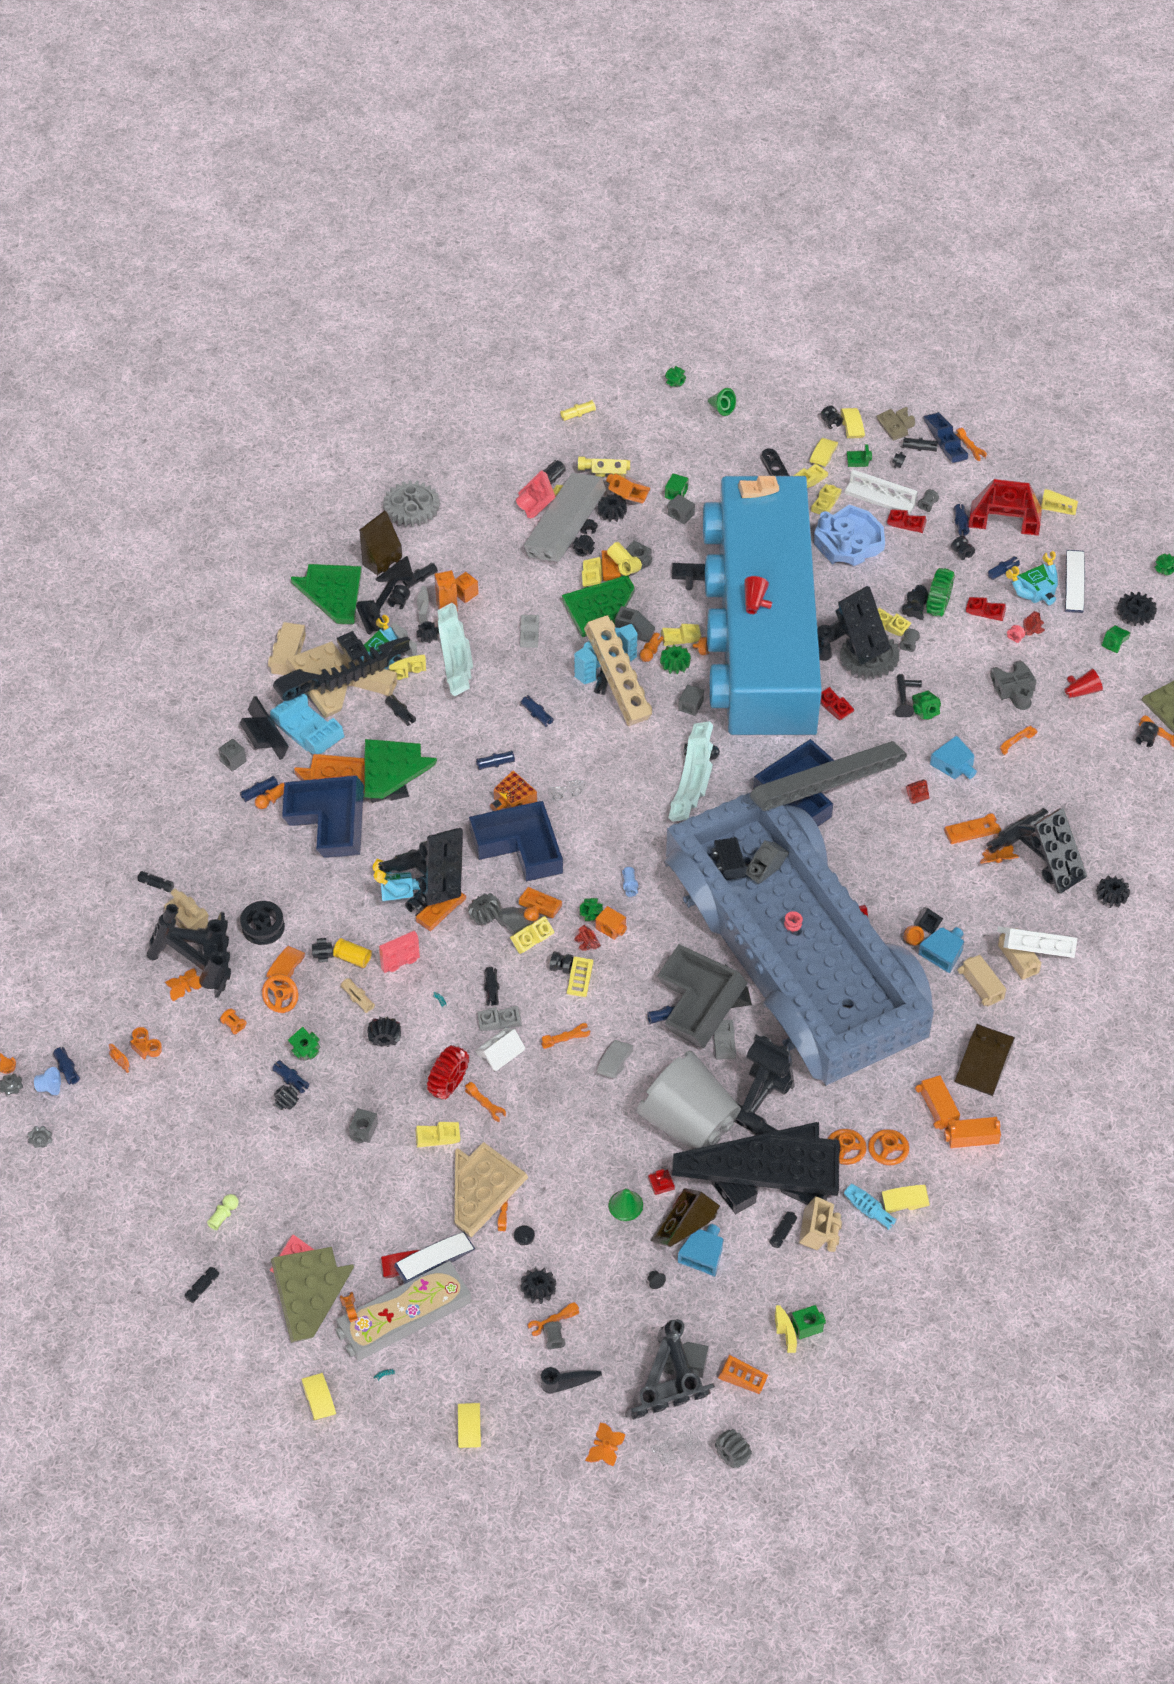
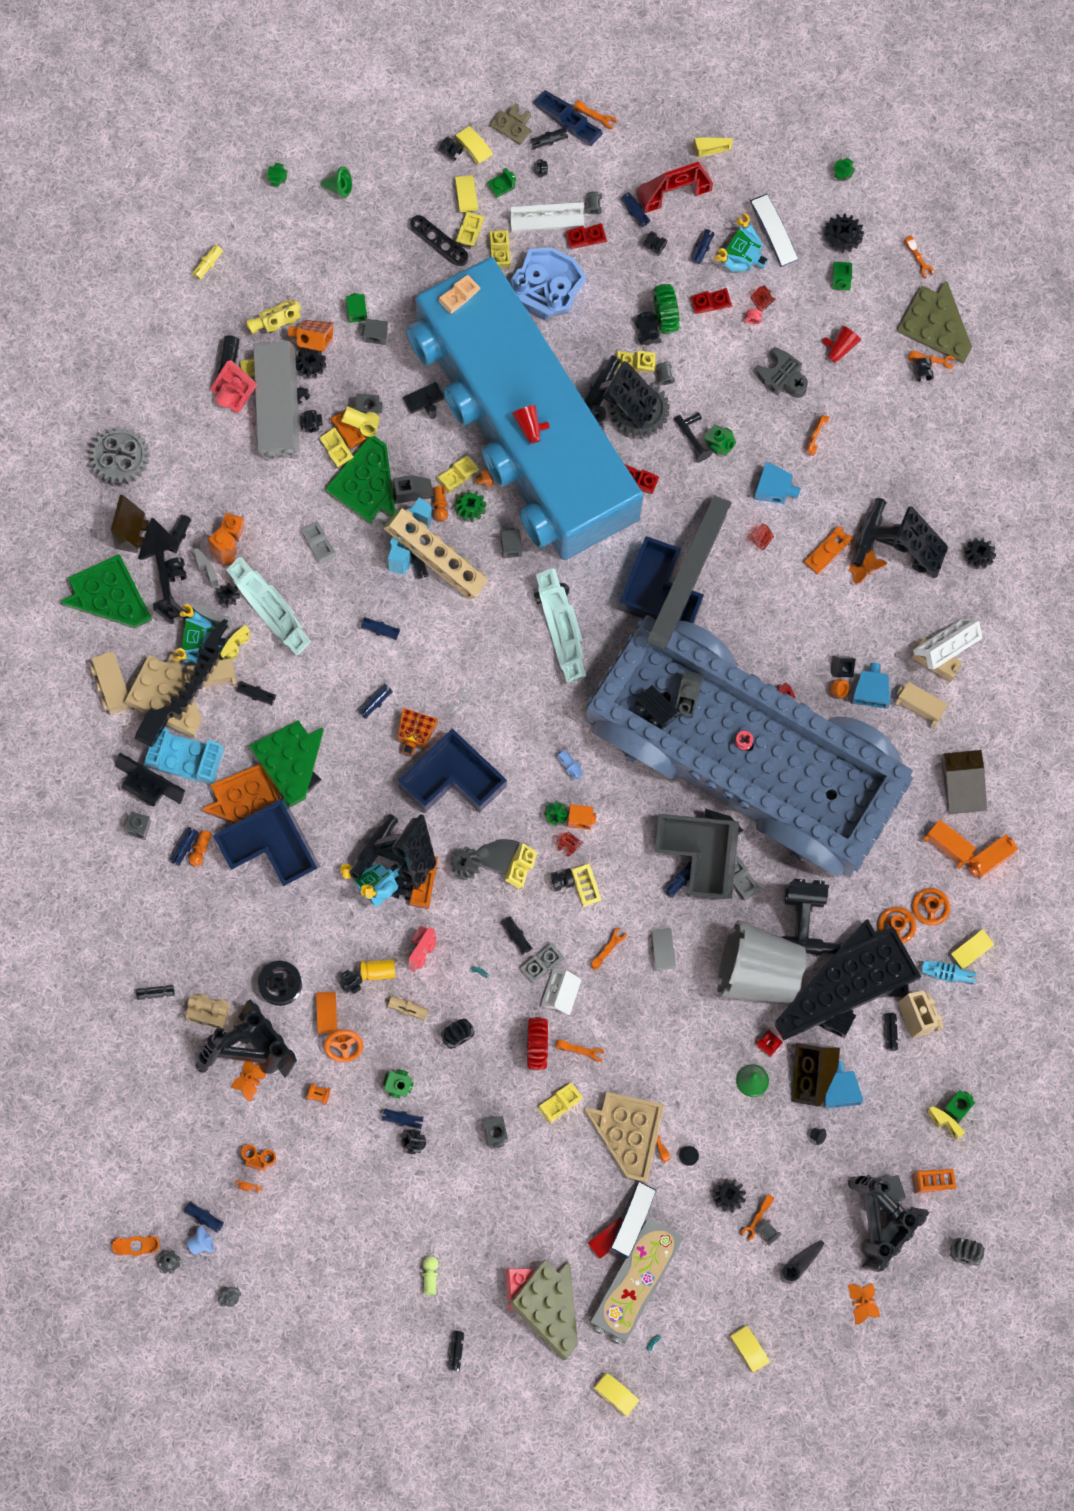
camera: 35 degrees left, 20 degrees up
(348, 1302) = (586, 1298): orange piece -> none
(351, 646) = (181, 658): black slope -> none
(538, 902) = (507, 830): orange plate -> none

